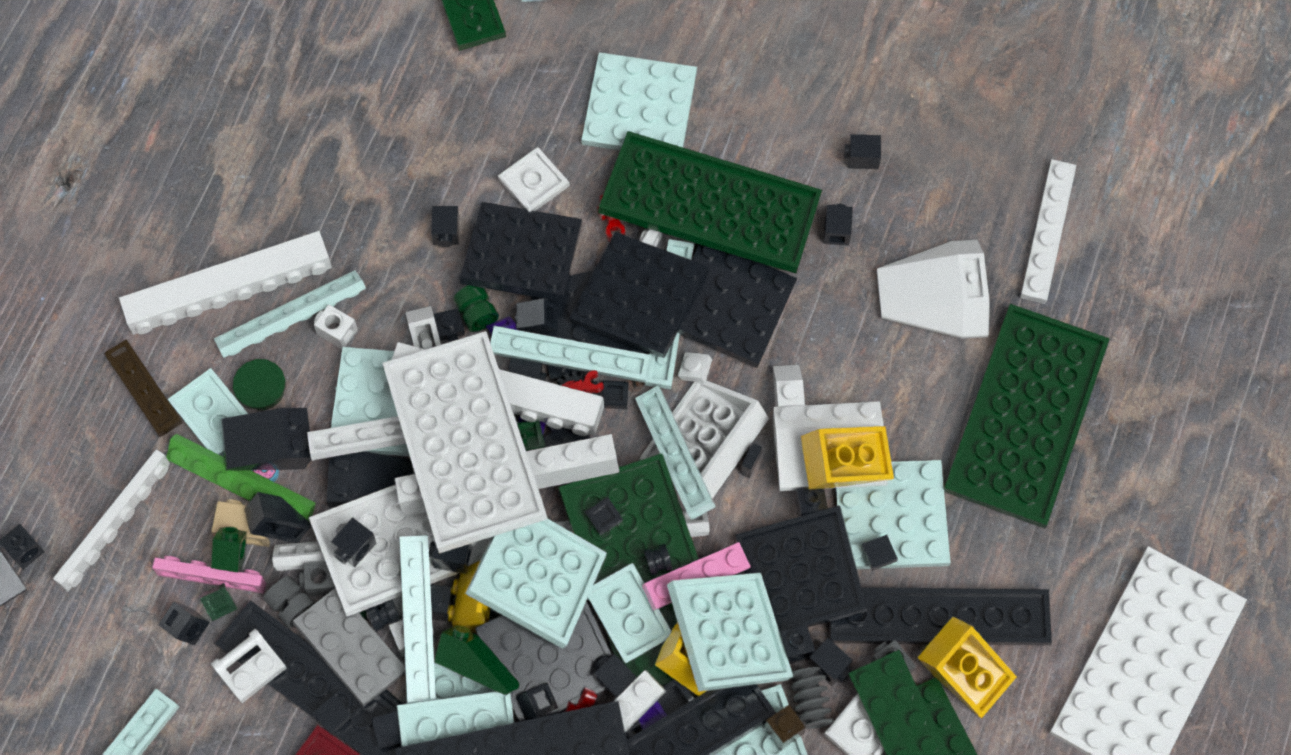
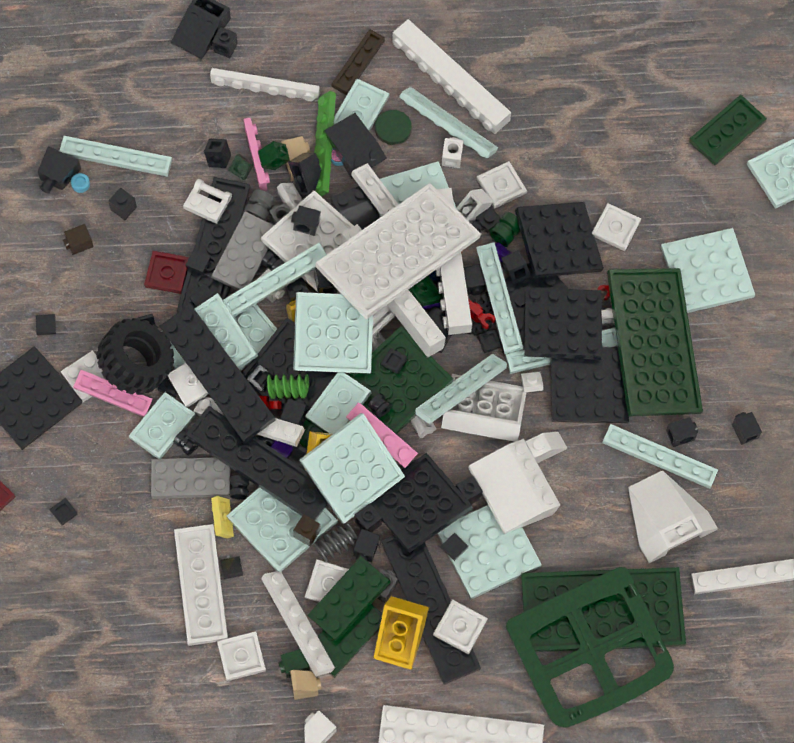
camera: 65 degrees right, 0 degrees up
(409, 287) = (502, 184): none -> white plate
(445, 225) = (555, 187): black brick -> none
(473, 659) = (266, 324): dark green slope -> none
(574, 667) = (288, 387): none -> bright green piece
(751, 460) = (482, 442): black tile -> none
(846, 456) = (507, 496): yellow slope -> none
(857, 263) = (660, 456): none -> light aqua plate
(990, 590) = (460, 626): none -> white plate
(1076, 447) = (591, 650): none -> dark green window

